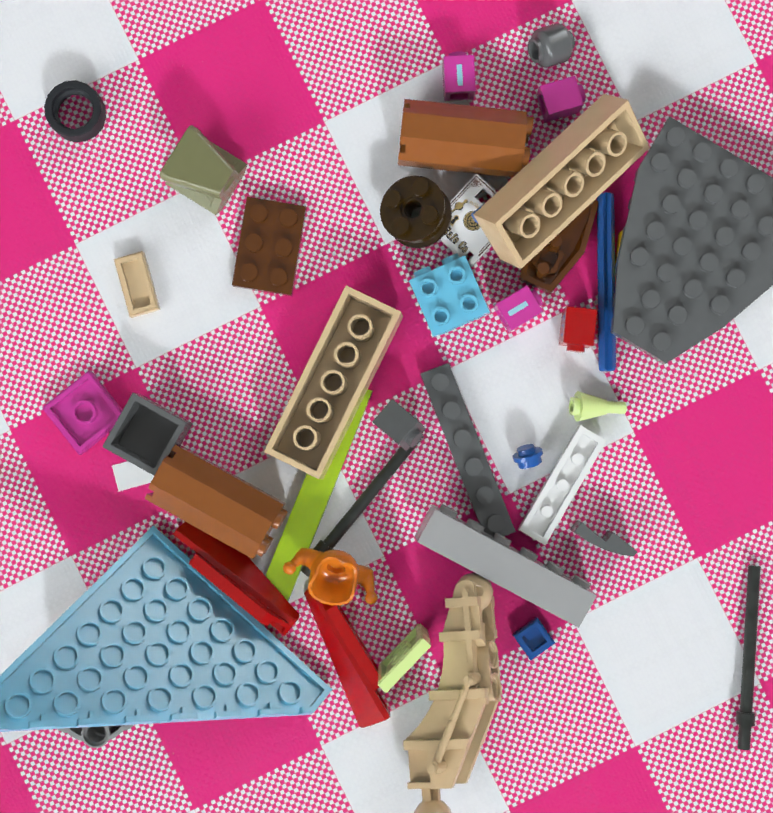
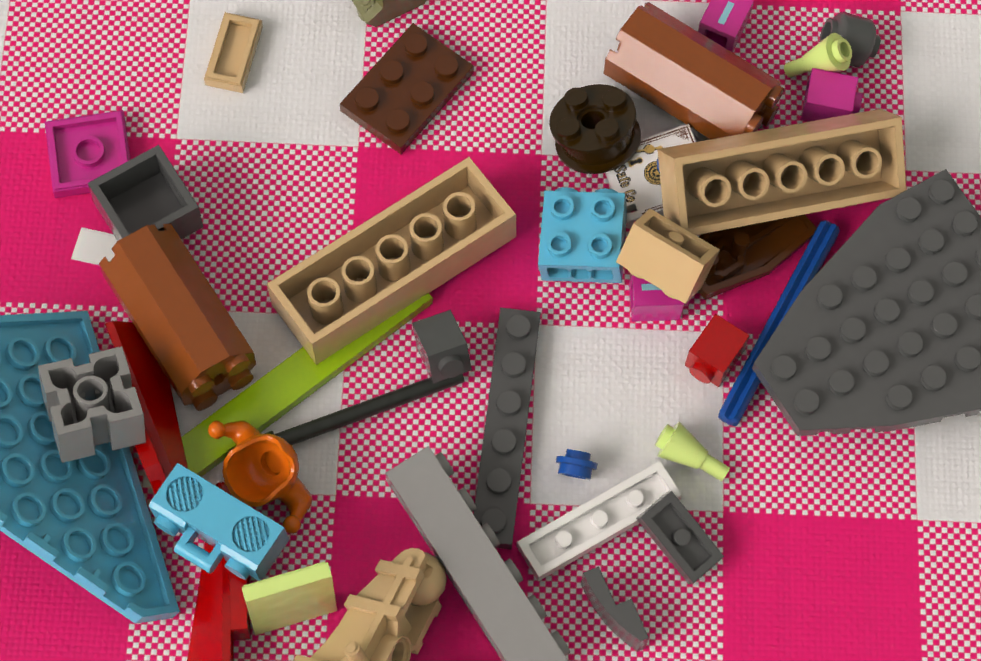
camera: 25 degrees right, 20 degrees down
(184, 606) = (92, 404): none -> light grey brick
(328, 630) = (234, 529): none -> medium azure piece
(520, 289) = (667, 256): none -> tan brick
(547, 70) = (829, 55): none -> yellowish green cone
(620, 470) = (680, 537): none -> dark grey plate

